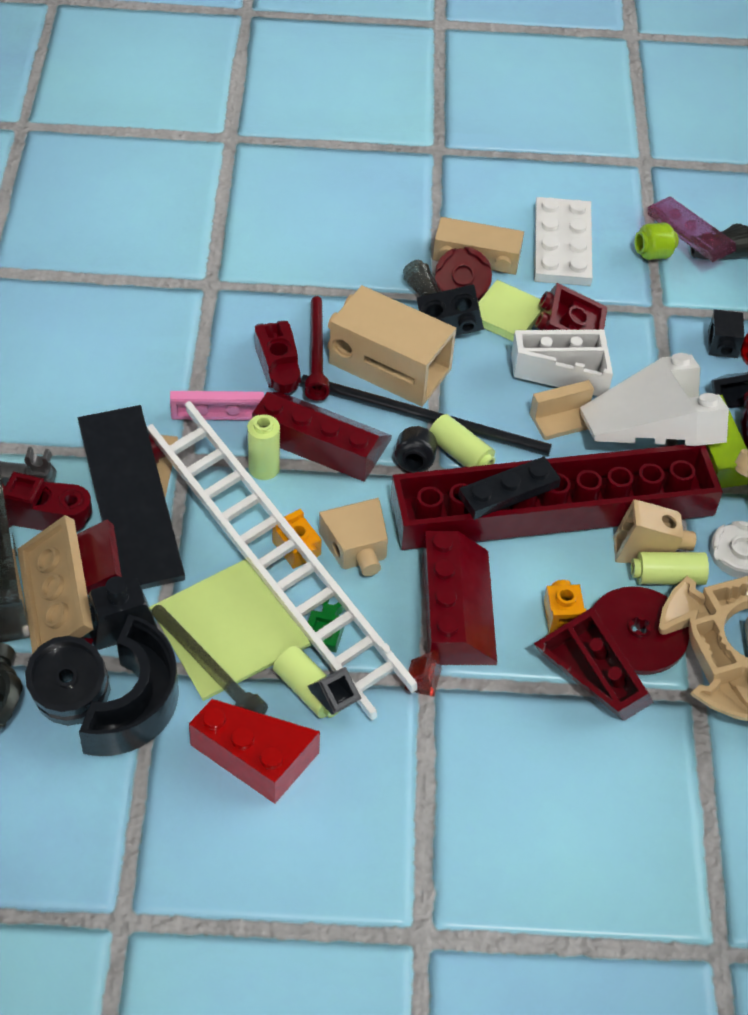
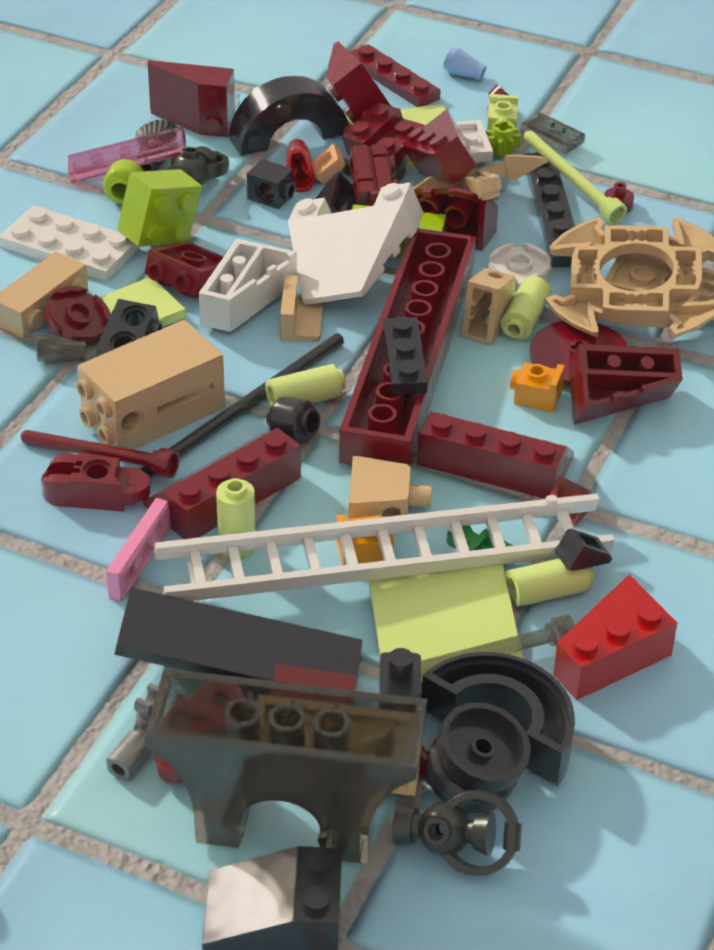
camera: 65 degrees left, 10 degrees down
(617, 269) = (159, 207): none -> lime brick
(706, 276) = (200, 163): none -> pearl dark grey piece

